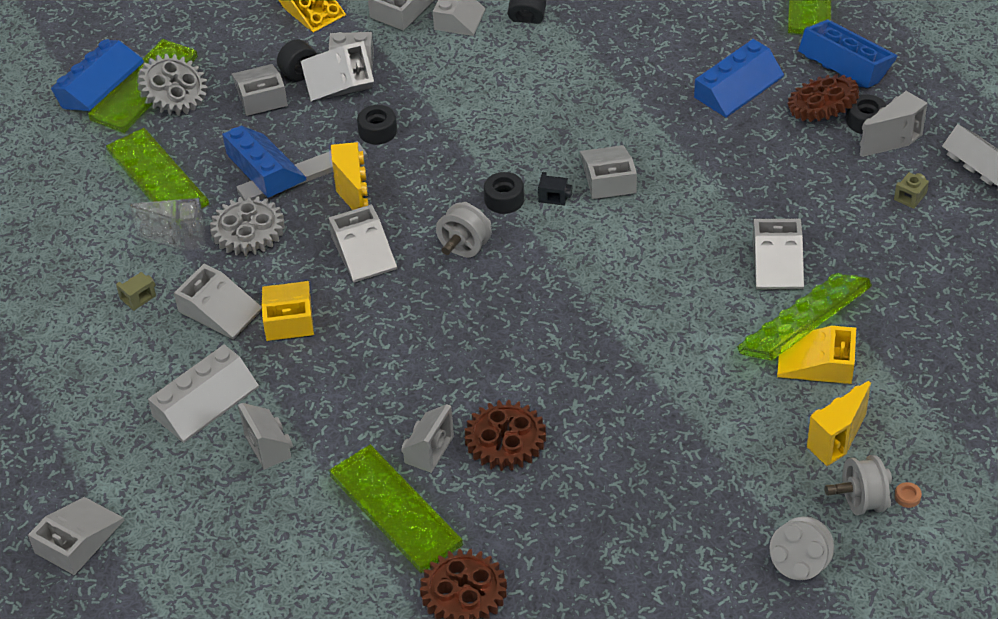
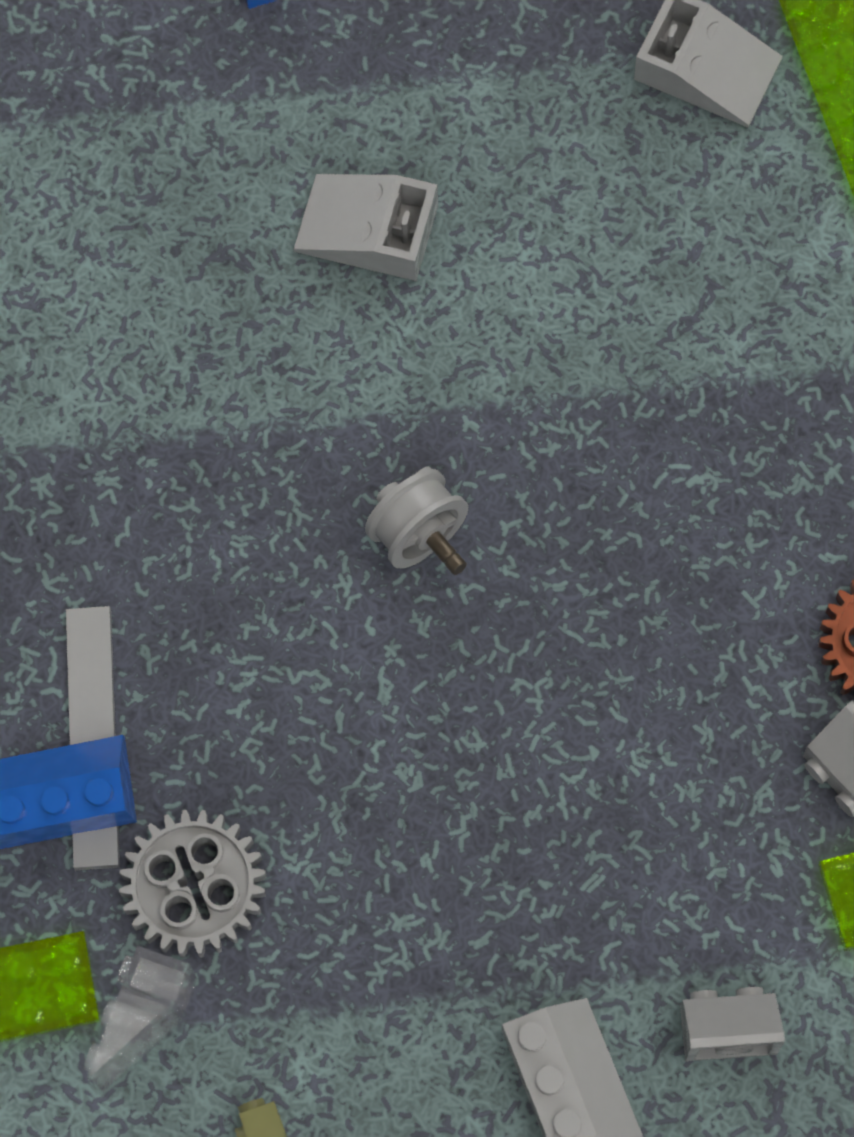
camera: 65 degrees left, 25 degrees up
(216, 302) = (373, 1001): light grey slope -> none
(287, 311) = (437, 884): yellow slope -> none
(349, 174) = (186, 659): yellow slope -> none
(362, 243) = (351, 701): slope -> none
(377, 124) = (52, 584): black tyre -> none
(504, 202) = (344, 440): black tyre -> none
(553, 190) = (372, 331): black brick -> none

